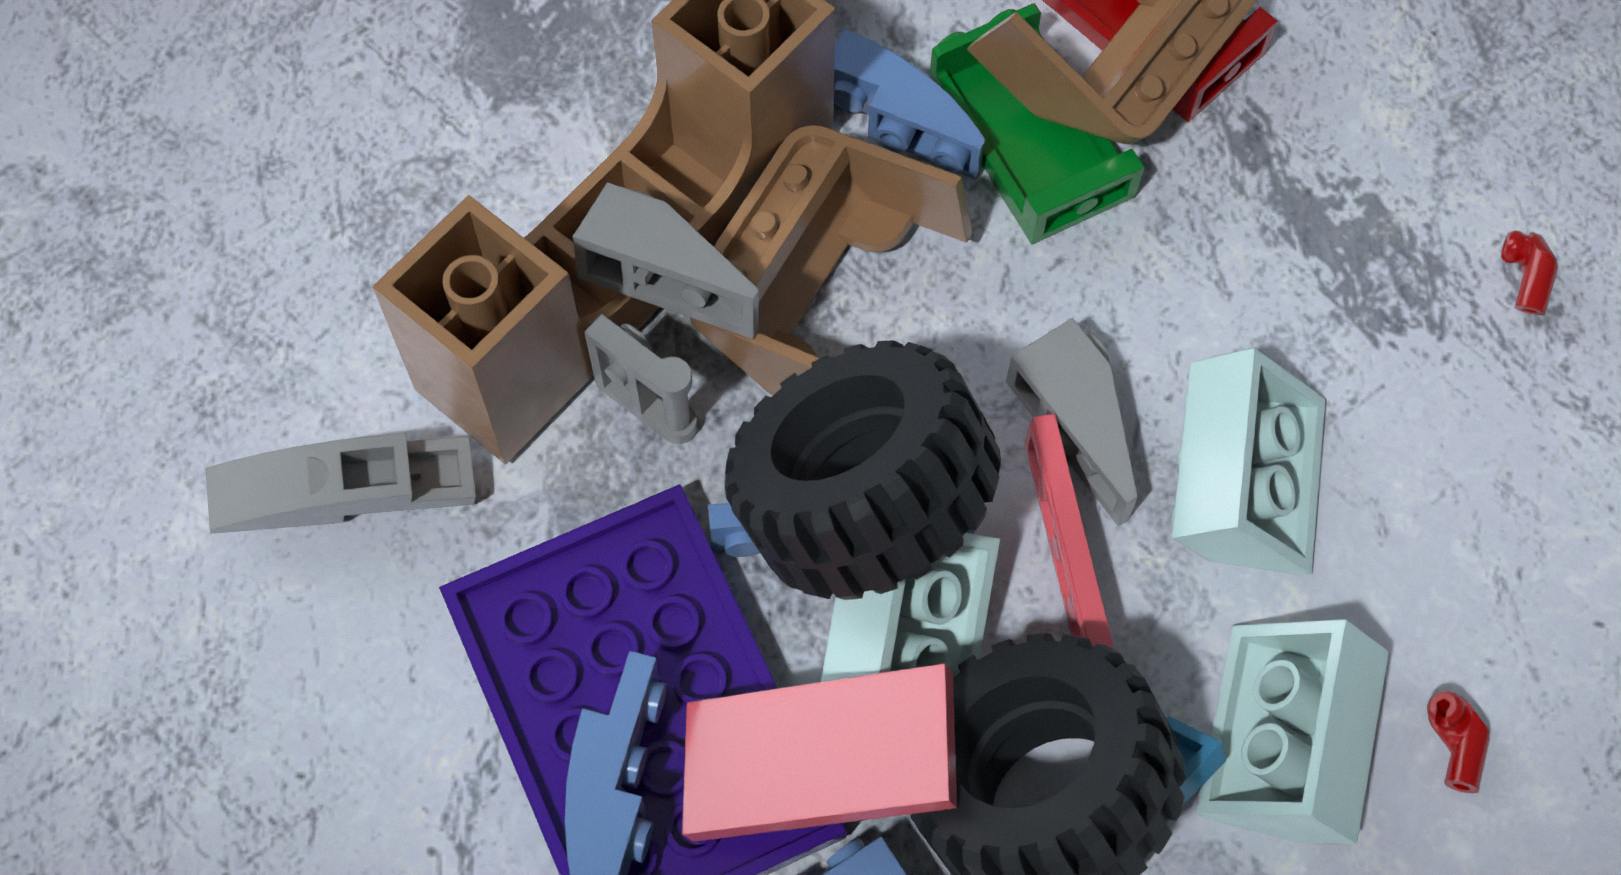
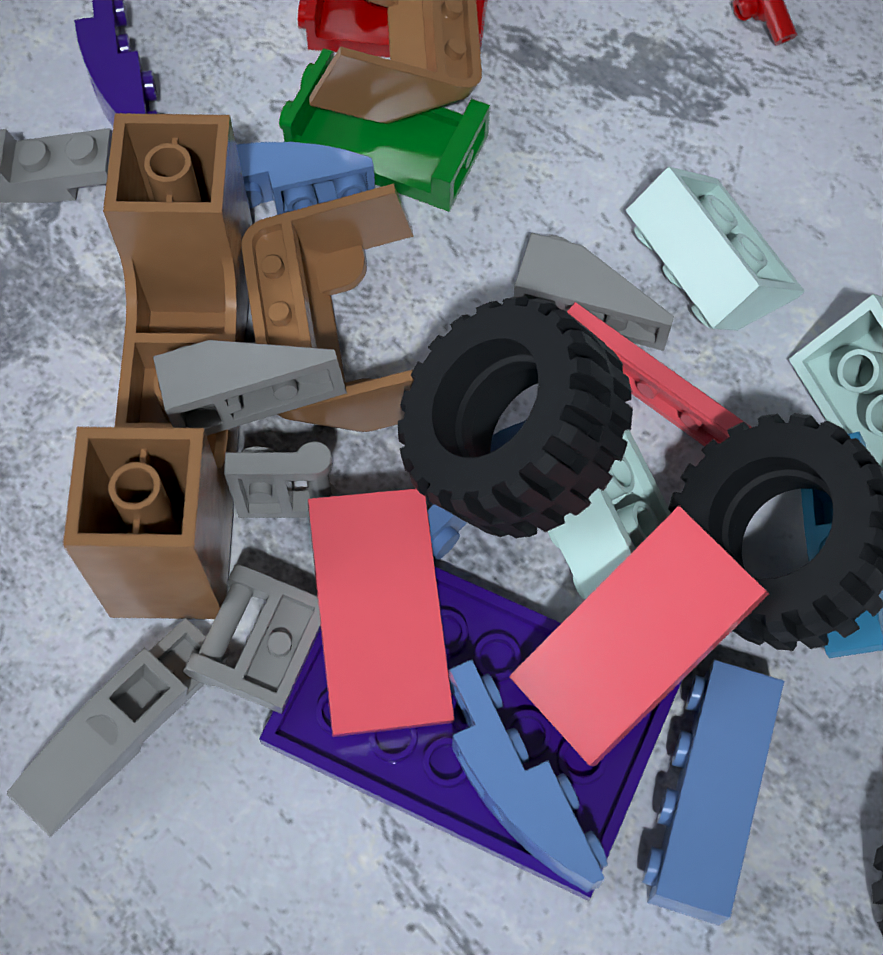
camera: 40 degrees left, 0 degrees up
(517, 517) = (275, 646): none -> light grey plate
(620, 556) = (379, 612): none -> coral tile

